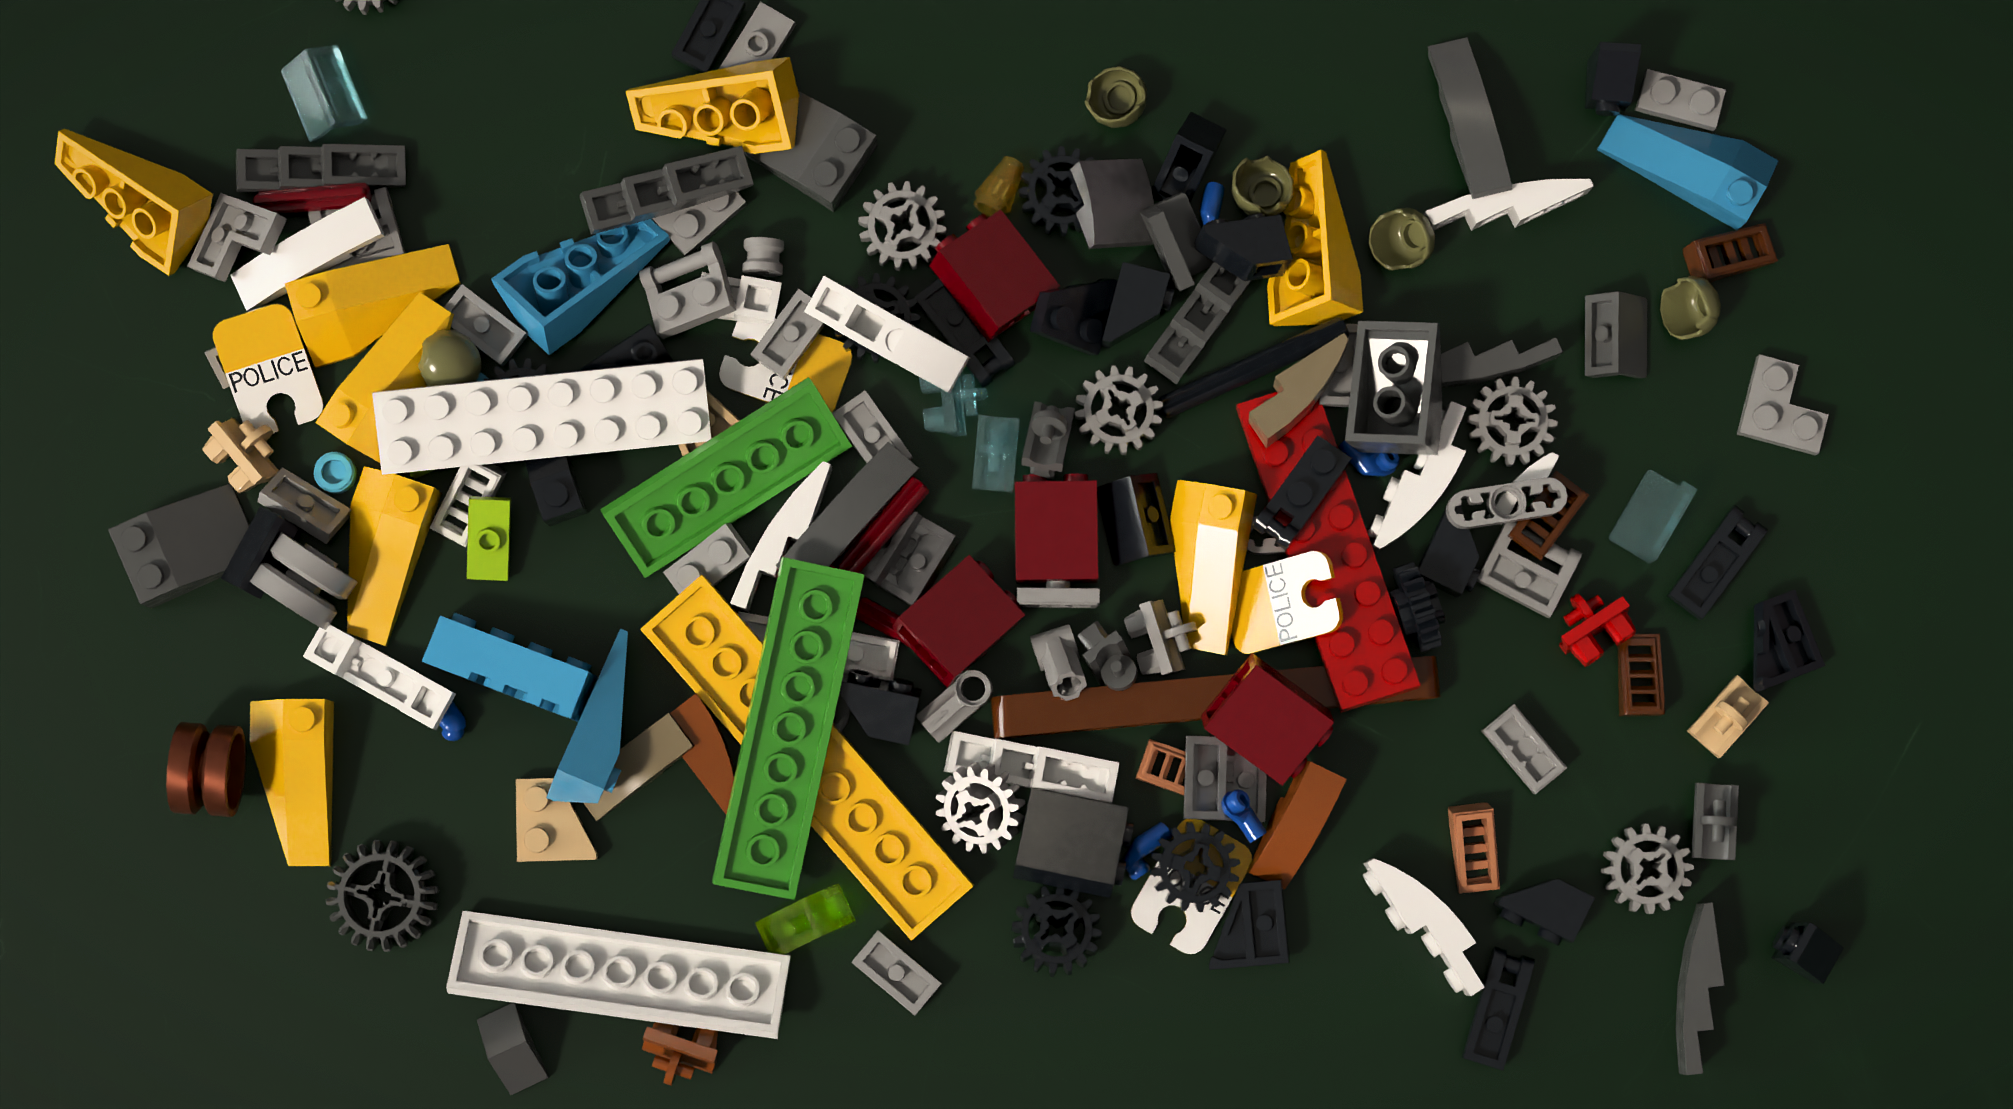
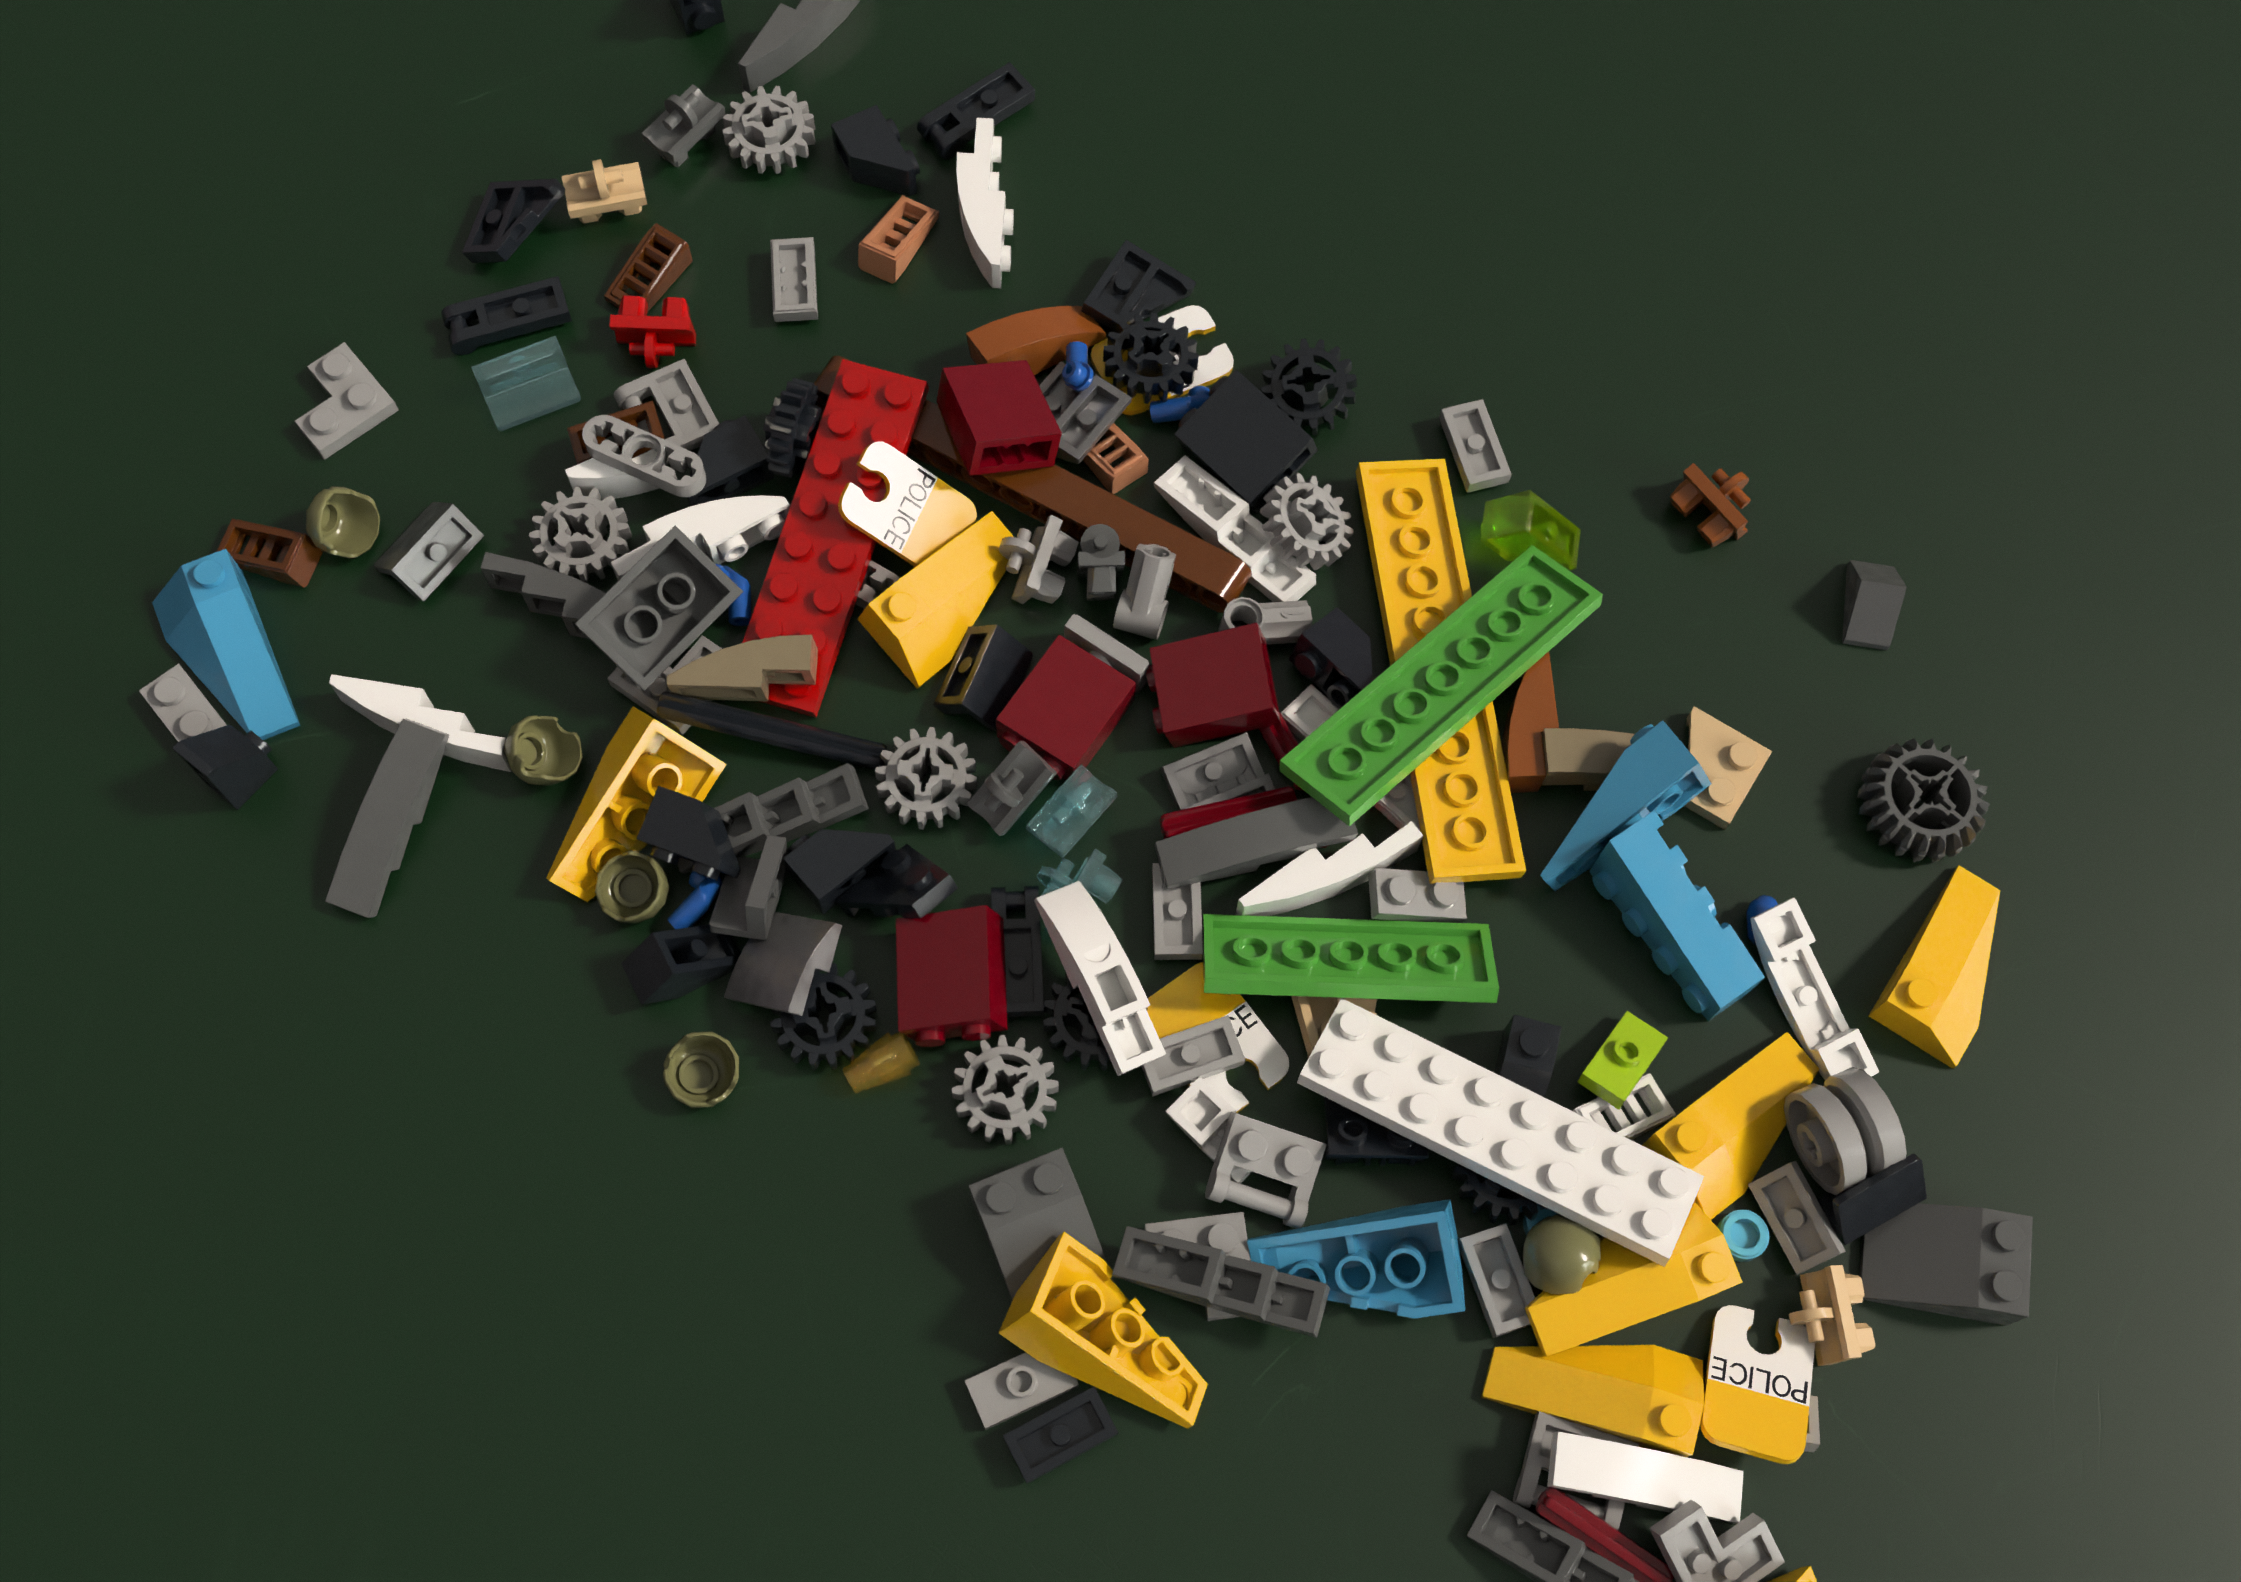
camera: 150 degrees left, 15 degrees down
(206, 769) = (2045, 1012): copper wheel -> none
(619, 974) = (1737, 594): white plate -> none
(763, 256) = (1165, 1153): light grey wheel -> none
(1302, 491) = (817, 582): black plate -> none

